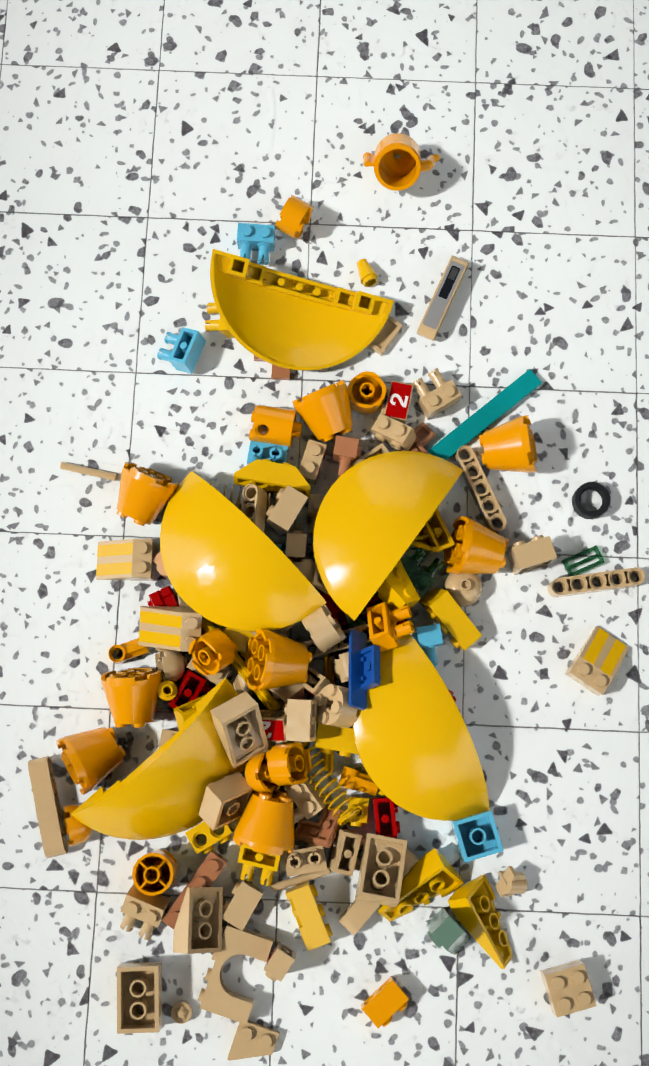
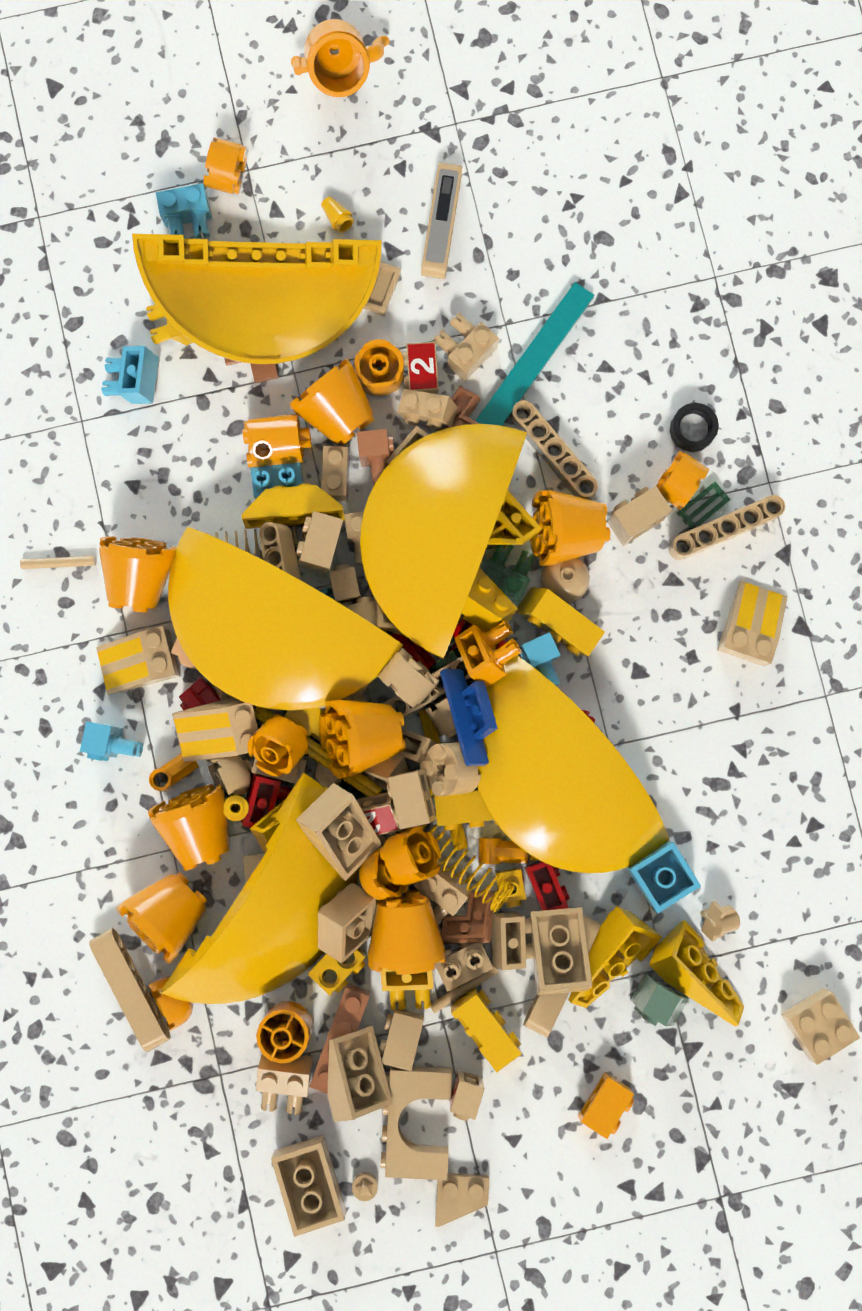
camera: 15 degrees left, 5 degrees up
(85, 613) = (106, 741): none -> medium azure brick
(510, 446) = (577, 387): light orange cone -> none
(570, 537) = (681, 479): none -> light orange brick

